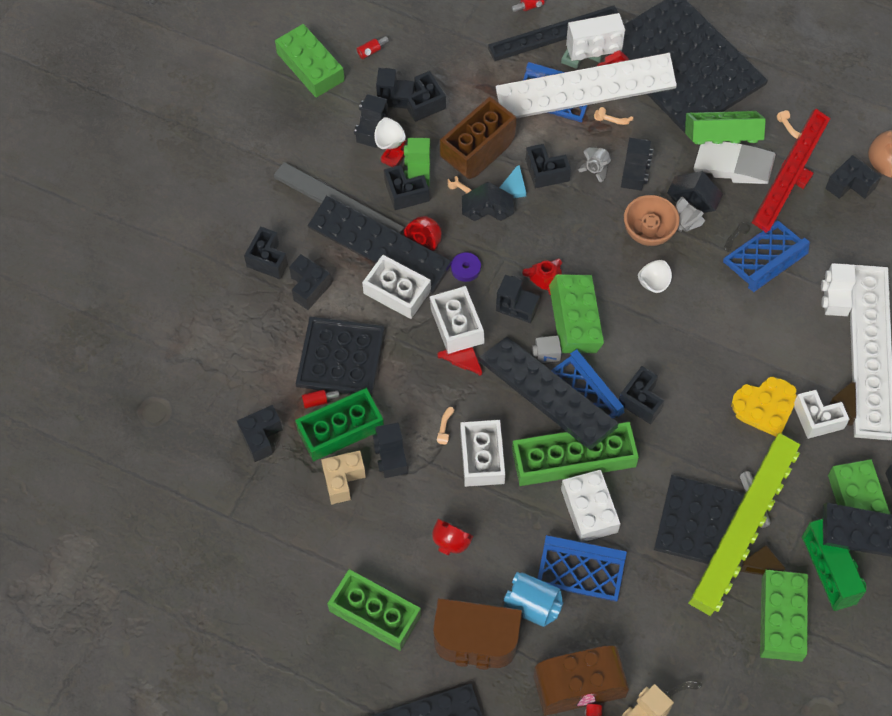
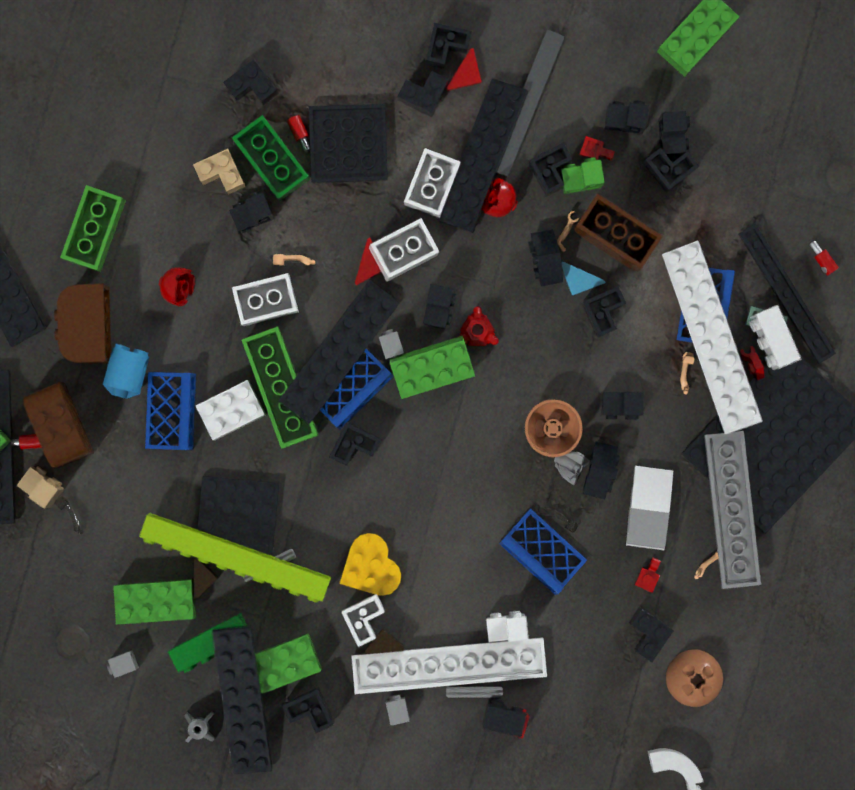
camera: 80 degrees right, 25 degrees up
(296, 244) = (467, 73): none -> red tile
(371, 47) = (730, 96): red piece -> none
(389, 134) = (608, 140): white helmet -> none
(465, 274) = (473, 239): dark purple piece -> none
(596, 162) = (621, 363): light grey brick -> none
(655, 276) = (492, 440): white helmet -> none
(725, 126) = (686, 492): bright green brick -> none
(744, 95) = (732, 510): none -> light grey plate
(790, 170) = (645, 568): red plate -> none
(849, 661) = (122, 664): none -> light grey brick

